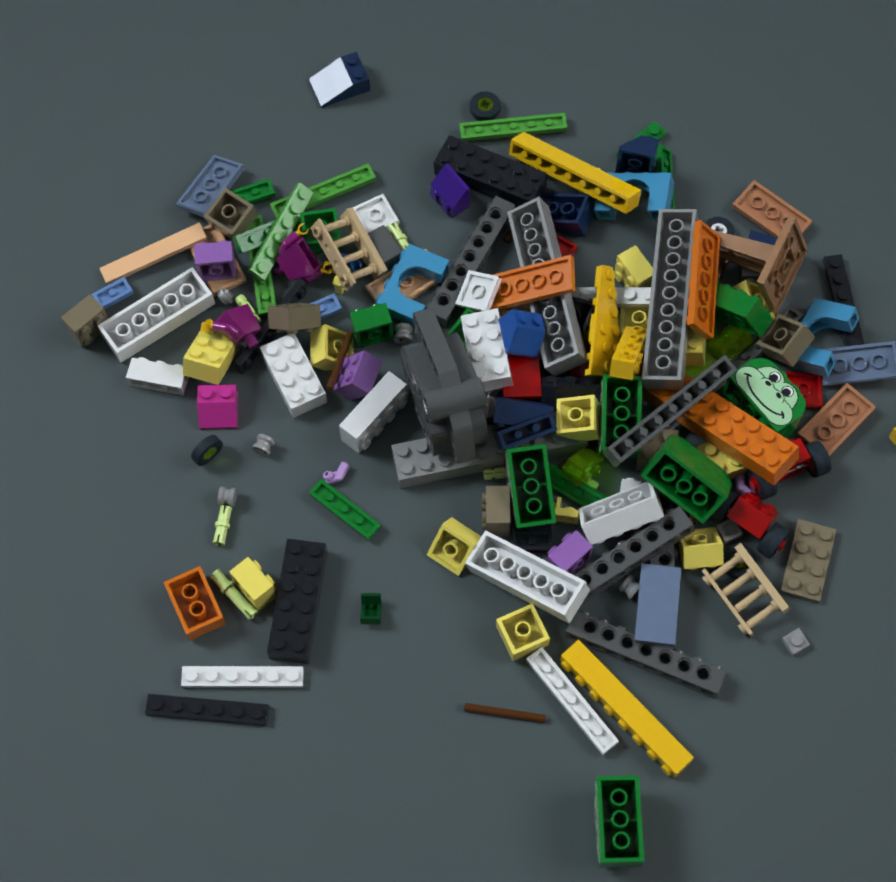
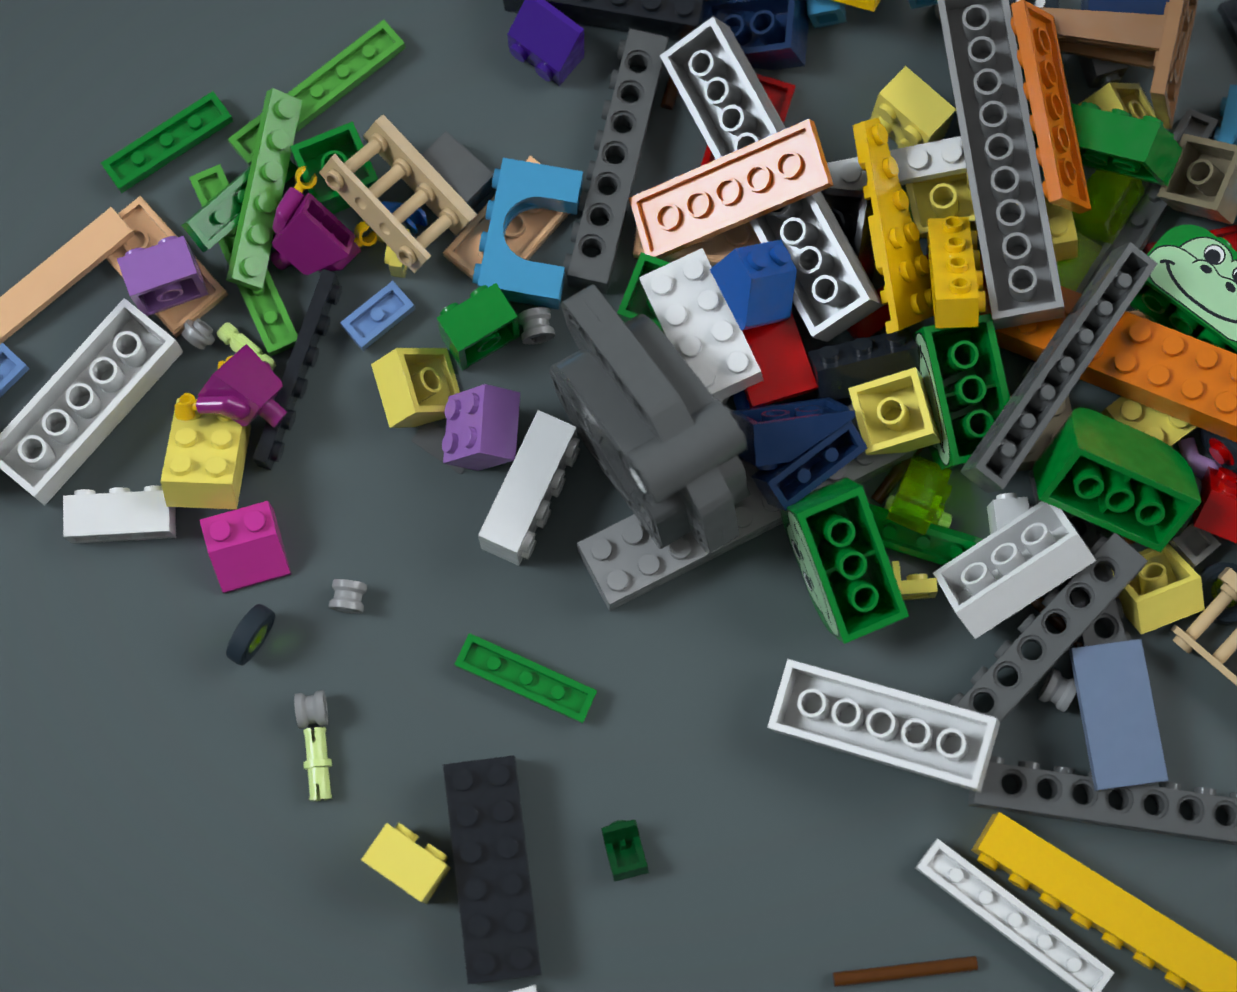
camera: 20 degrees left, 10 degrees up
(194, 603) = (311, 925): orange brick -> none
(209, 183) = (110, 132): sand blue tile -> none
(227, 587) = (369, 882): yellowish green pin -> none
(230, 214) = (165, 179): dark tan brick -> none
(293, 375) = (364, 452): white brick -> none
(294, 317) = (337, 348): dark tan brick -> none
(336, 476) = (494, 618): lavender arm -> none
(339, 362) = (441, 408): reddish brown bar -> none
(376, 213) = (424, 112): white tile -> none
(398, 236) = (476, 145): yellowish green pin -> none
(453, 545) = (737, 695): light yellow slope -> none
(478, 291) = (652, 218): white plate -> none
(496, 510) = (795, 615): dark tan brick -> none
(498, 472) = (771, 540): yellowish green axle -> none
(522, 632) = (899, 823): light yellow brick -> none
(533, 538) = (868, 651): black plate -> none
(571, 553) = (944, 665): medium lavender brick -> none

